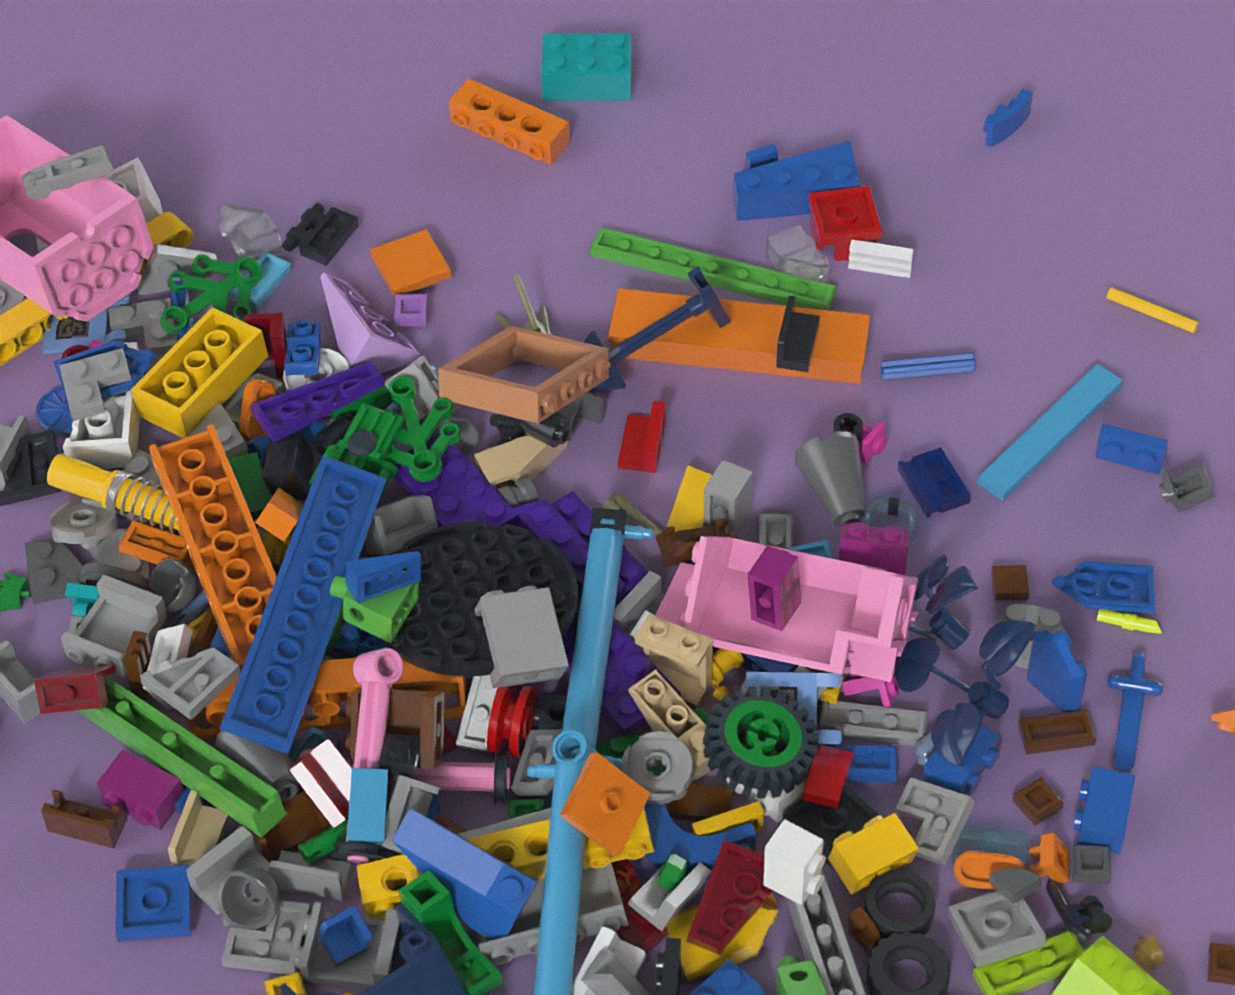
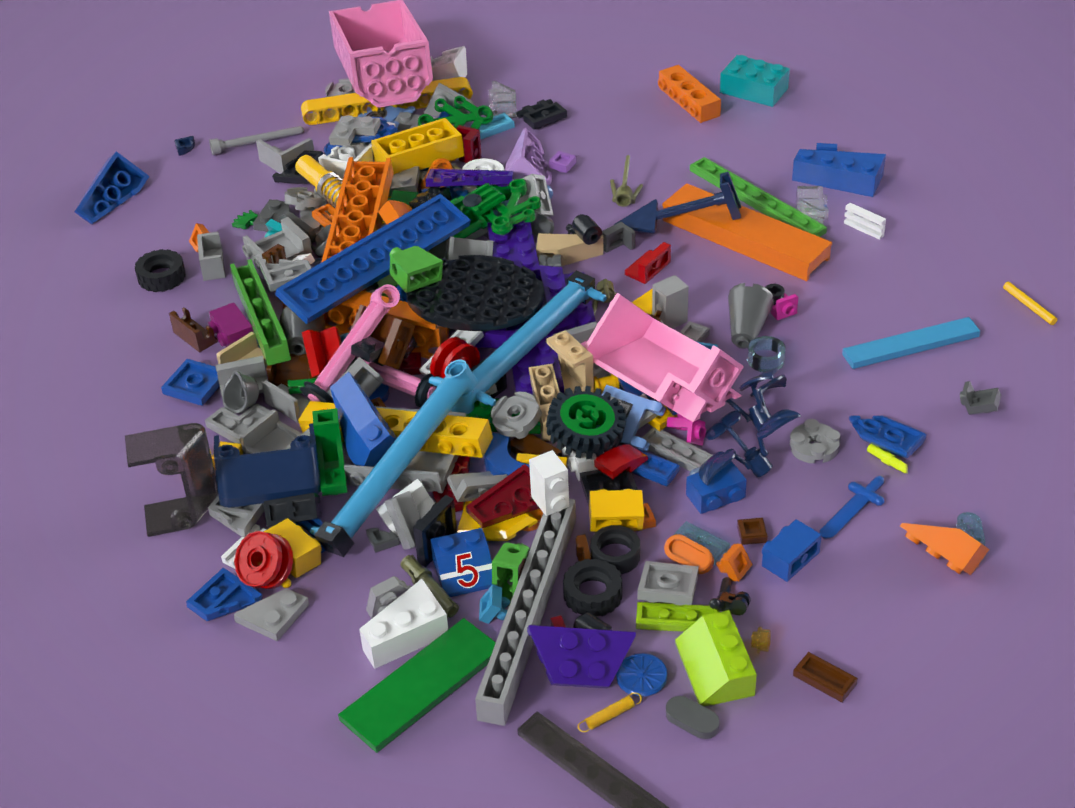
camera: 30 degrees right, 10 degrees down
(67, 172) = (402, 22): light grey hinge -> none
(73, 689) = (228, 262): dark red panel -> none
(303, 348) = (483, 154): blue slope -> none
(345, 936) = (275, 431): blue panel -> none
(367, 805) = (331, 366): dark azure tile -> none
(371, 576) = (409, 254): blue slope -> none
(410, 263) = (580, 140): orange tile -> none
(470, 383) = (577, 195): nougat window -> none
(522, 636) = (478, 313): light grey panel -> none
(605, 804) = (457, 408): orange plate -> none
(672, 872) = (485, 468): green tile -> none
(774, 588) = (652, 344): magenta brick -> none
(796, 338) = (772, 234): black panel -> none
(843, 216) = (854, 189): red panel -> none
(875, 546) = (751, 357): magenta brick -> none
(928, 366) = (855, 284): axle -> none
(934, 482) = (812, 342): clear blue plate -> none
(942, 816) = (677, 509): light grey plate -> none
(1007, 119) = (1001, 178): blue slope -> none
(1010, 582) = (823, 410): reddish brown tile -> none
(1015, 883) = (697, 563): dark grey tile -> none
(1056, 671) = (810, 459): blue tile -> none
(1056, 731) = (793, 499): reddish brown tile -> none
(1091, 864) = (761, 578): dark grey tile -> none
(1131, 448) = (956, 364): blue bracket -> none

